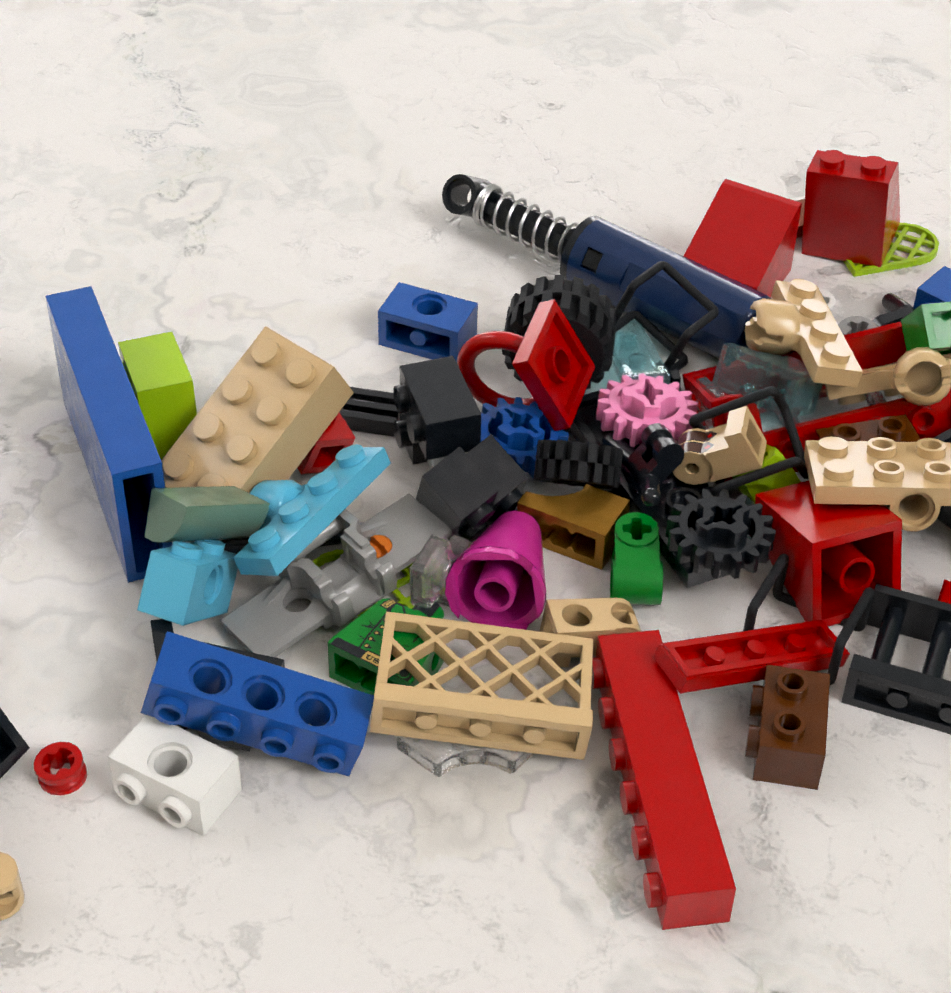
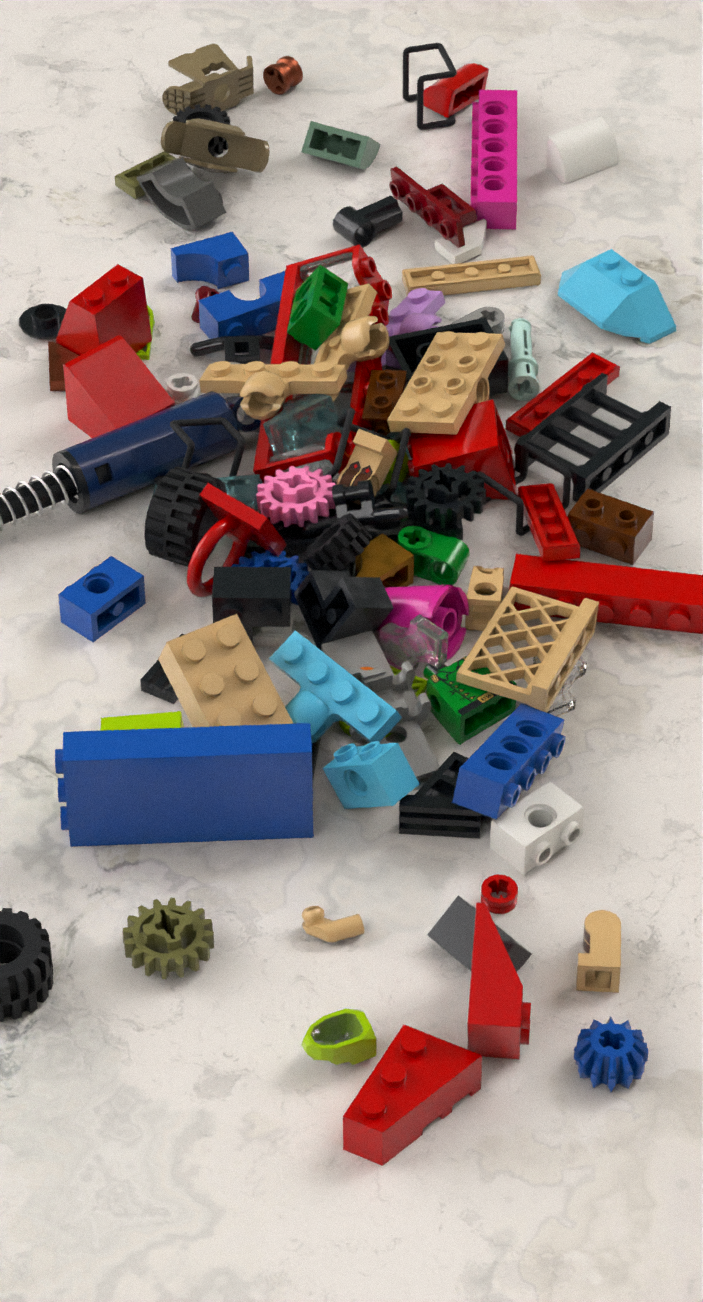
camera: 70 degrees left, 0 degrees up
(203, 513) = (333, 738): sand green brick -> none

